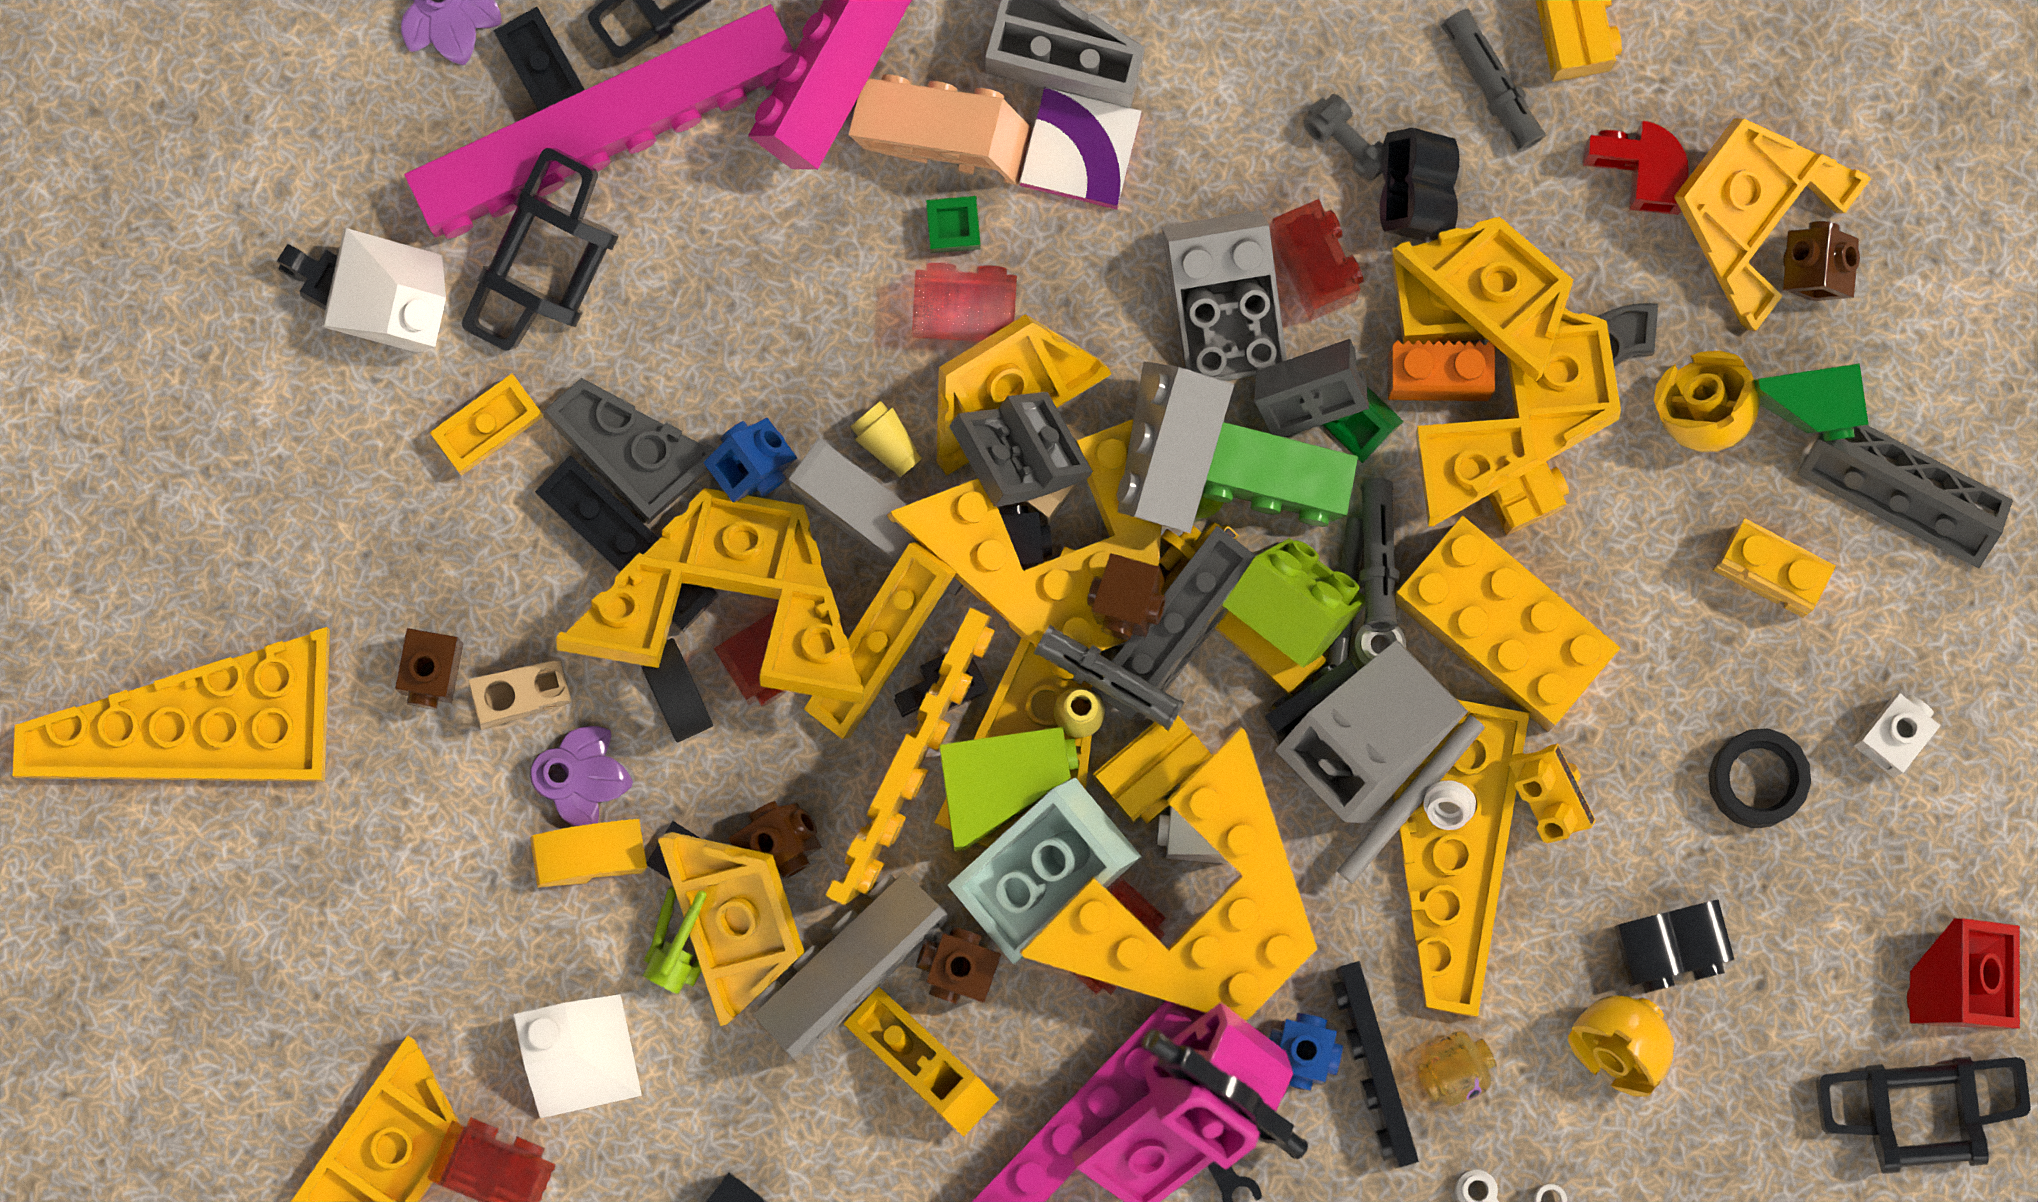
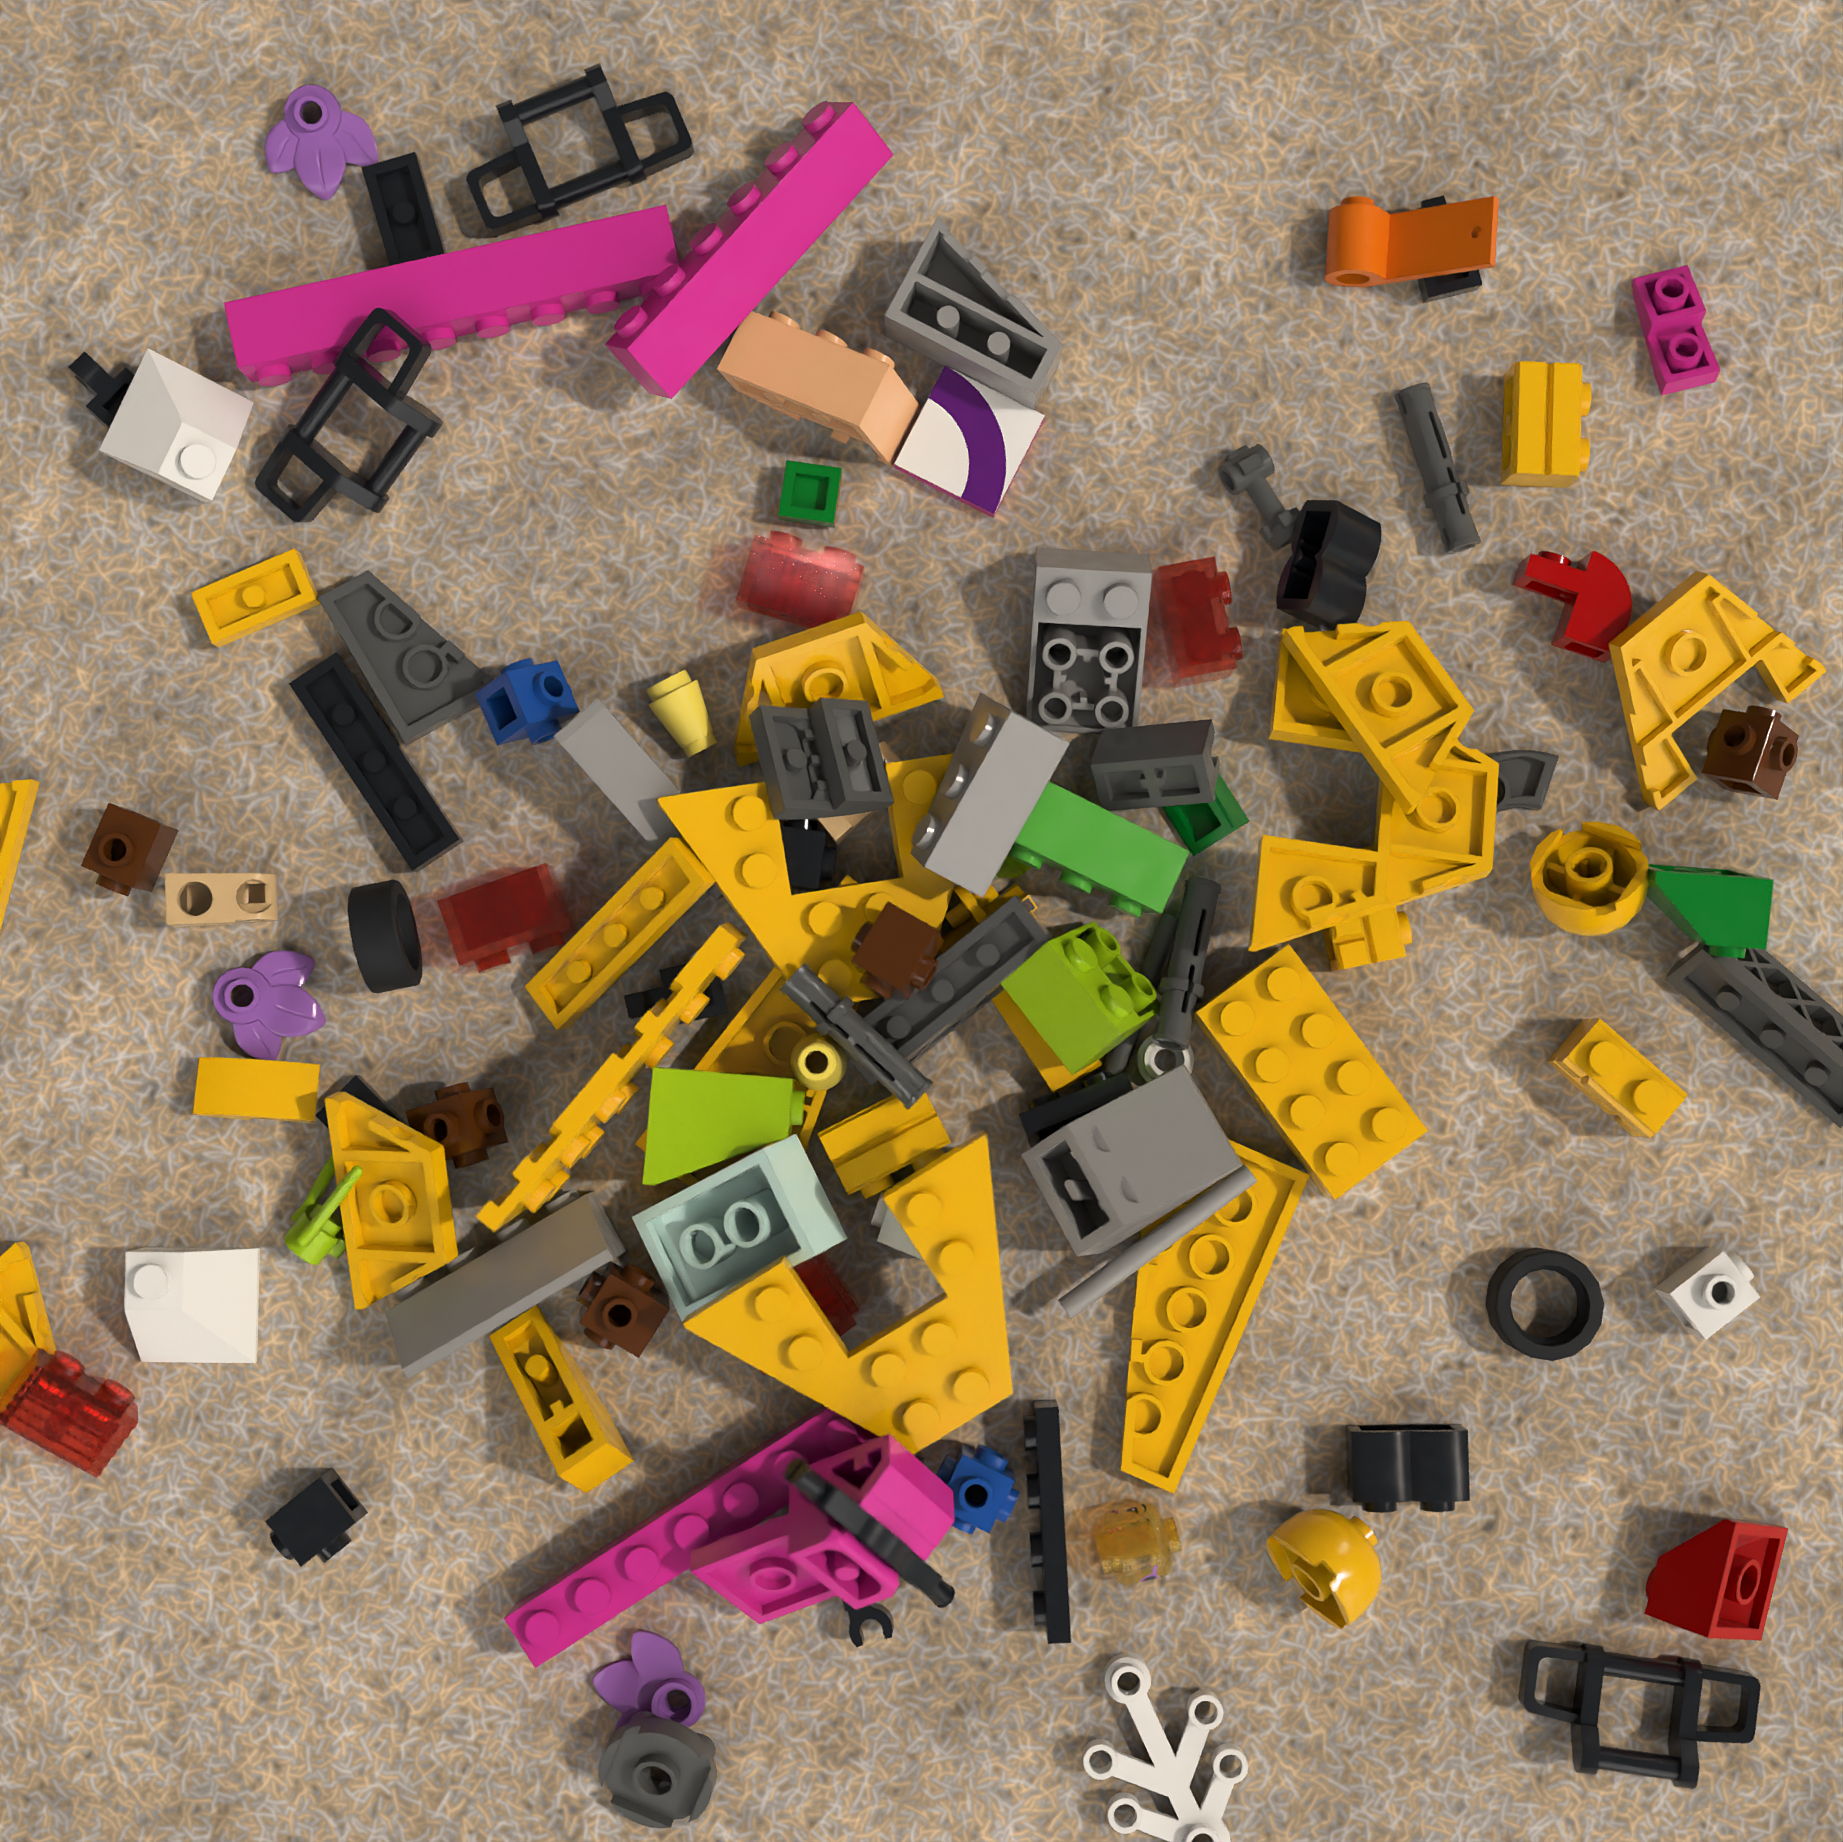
camera: 20 degrees right, 5 degrees up
(736, 547) = (489, 795): yellow wing -> none
(1441, 371) = (1303, 777): orange brick -> none
(1446, 814) = (1197, 1259): white plate -> none
(1552, 792) = (1315, 1272): yellow hips -> none

